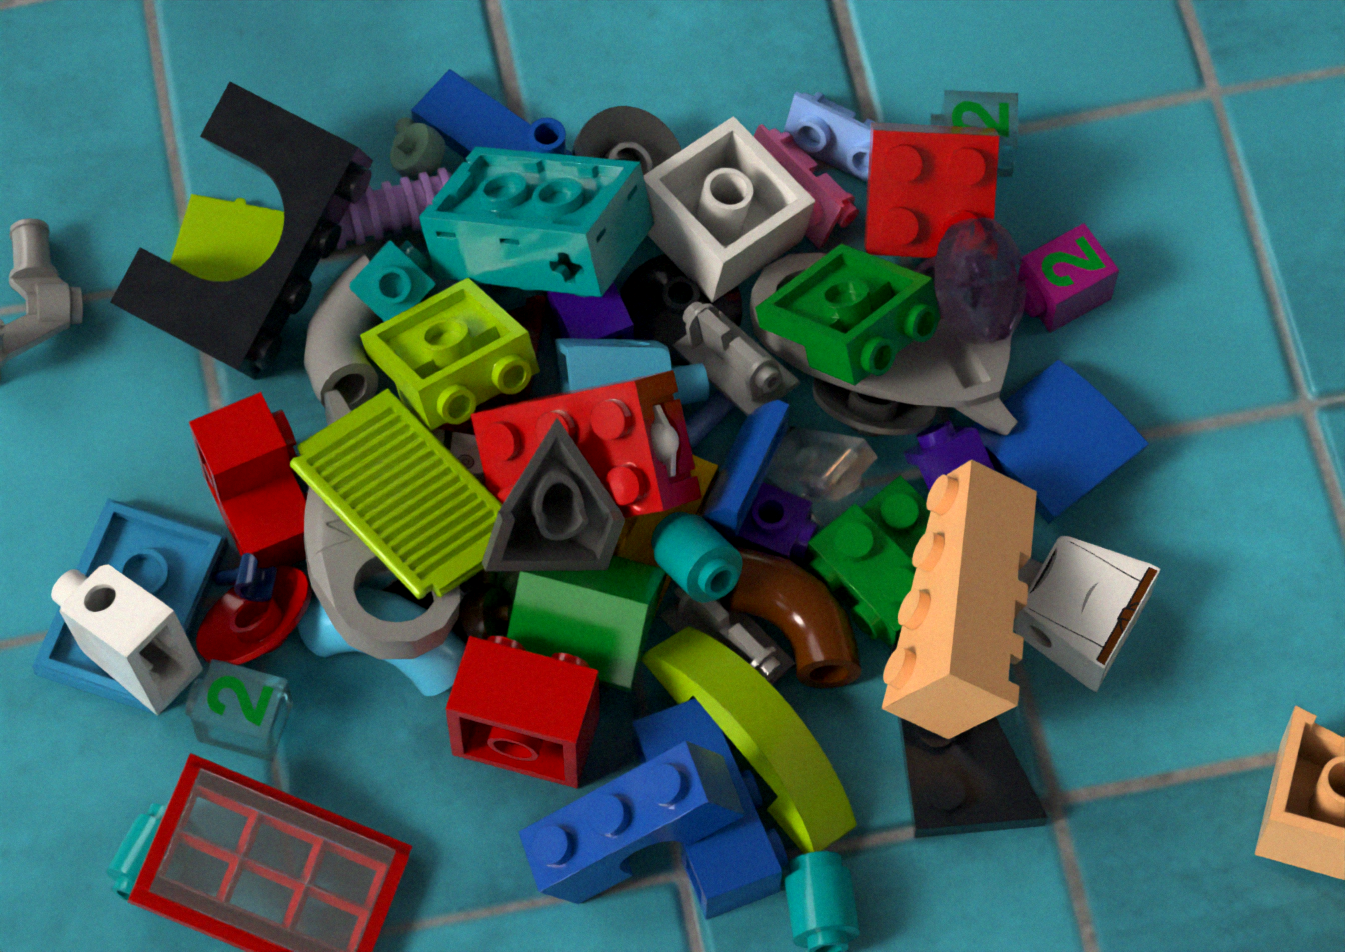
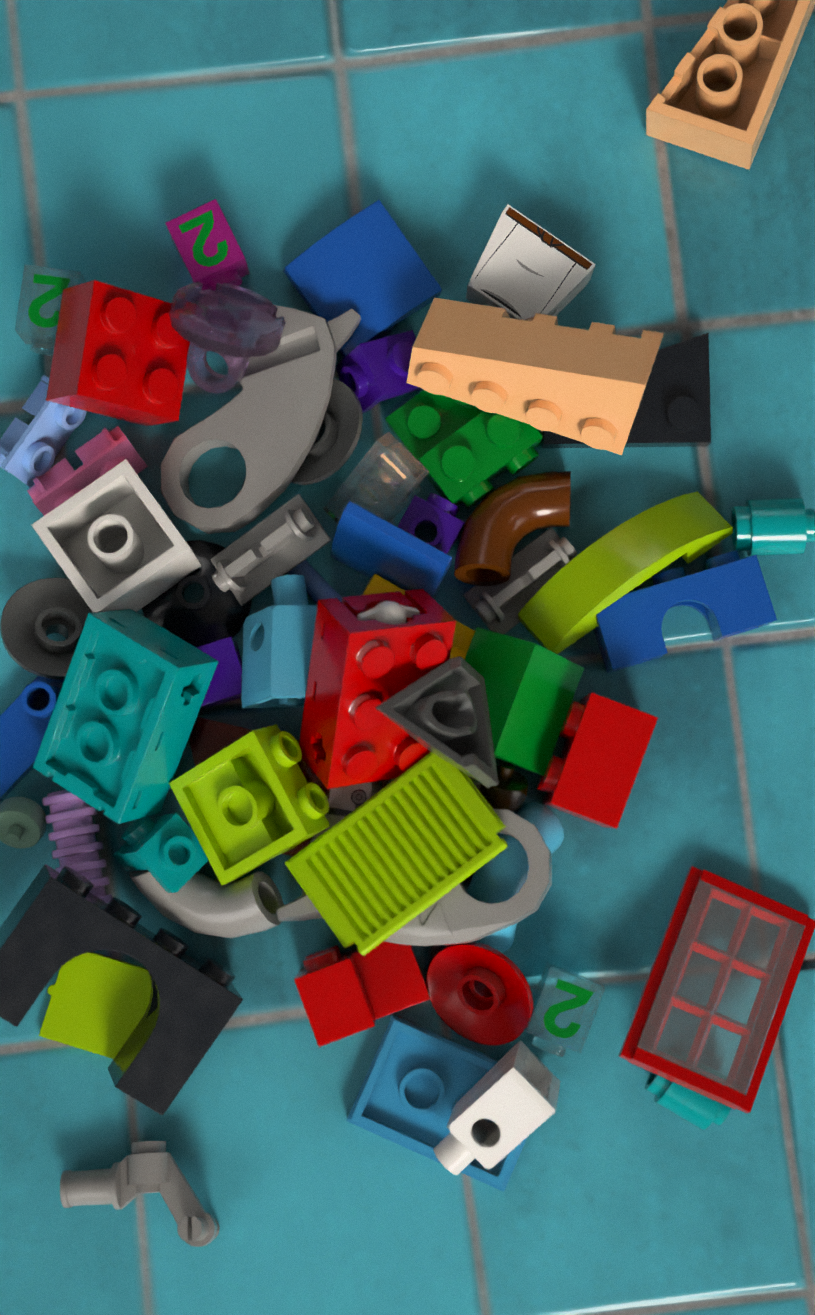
camera: 85 degrees left, 20 degrees up
(250, 581) = (448, 992): dark blue hand -> none
(663, 800) = (716, 676): blue arch -> none
(696, 556) = (478, 596): teal brick -> none
(852, 313) = (246, 437): green plate -> none

